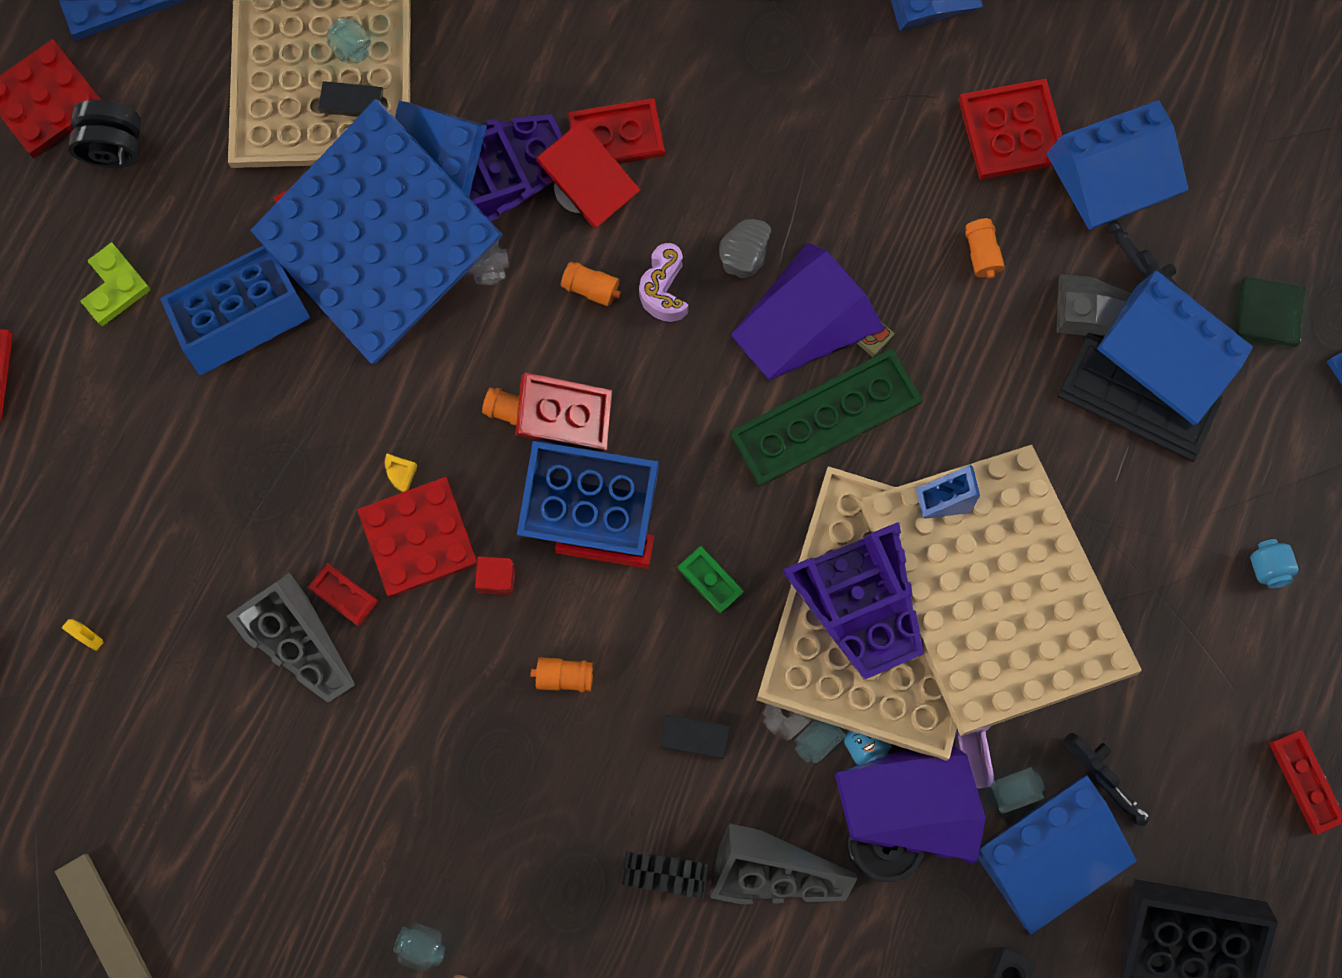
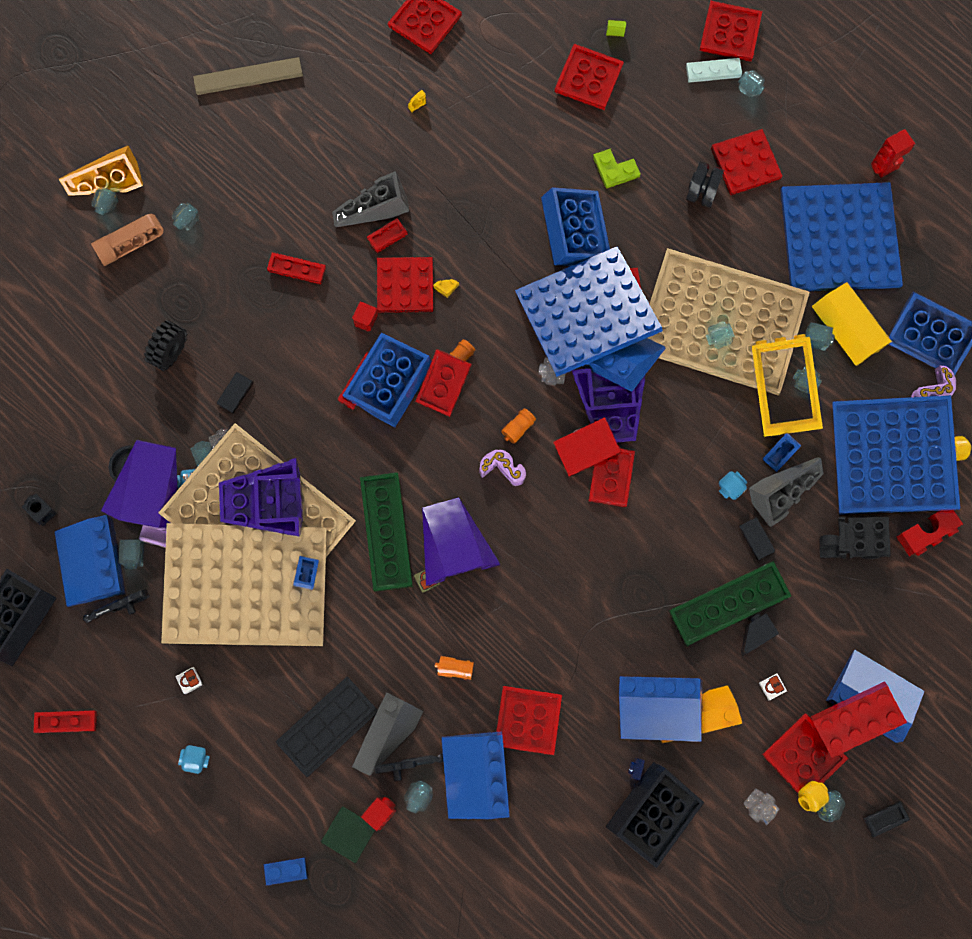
camera: 110 degrees right, 0 degrees up
(347, 98) = (682, 326): black tile -> none
(449, 720) = (296, 268): none -> red plate
(562, 674) = (295, 334): orange piece -> none
(710, 580) = (316, 431): green plate -> none
(745, 248) = (505, 520): dark grey hair -> none
(765, 867) = (152, 400): dark grey wedge -> none
(1164, 621) = (189, 680): none -> tile
(1174, 347) = (344, 752): blue slope -> none
(1181, 234) = (418, 796): none -> clear light blue head
(1240, 258) = (379, 813): none -> red arch

